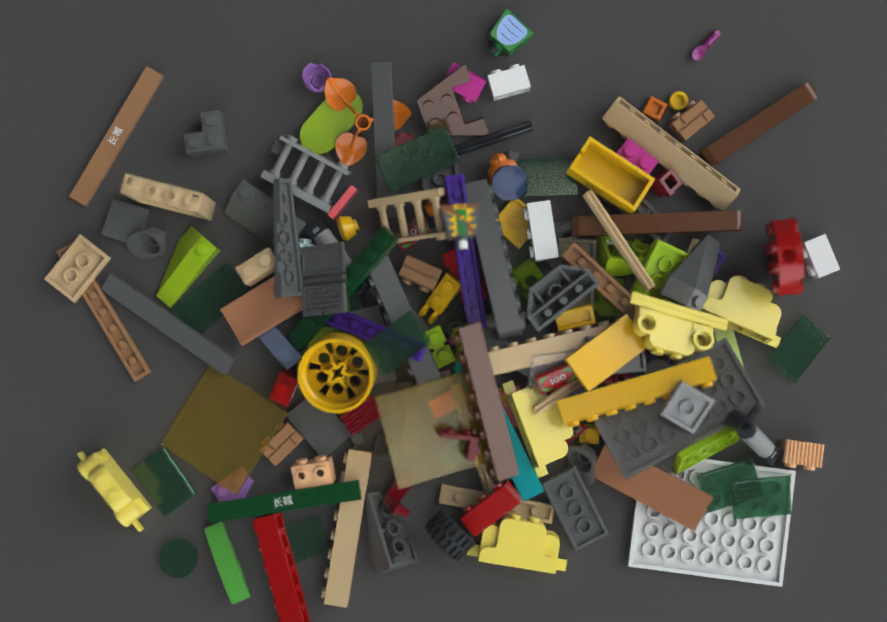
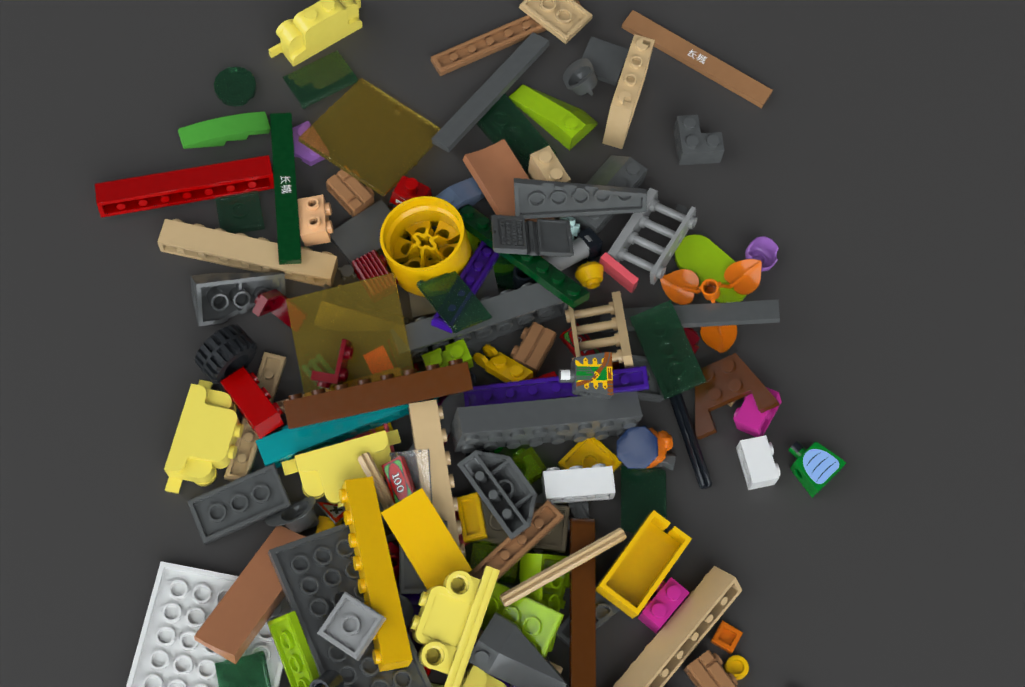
camera: 85 degrees right, 20 degrees down
(665, 183) = (632, 638): dark red brick -> none

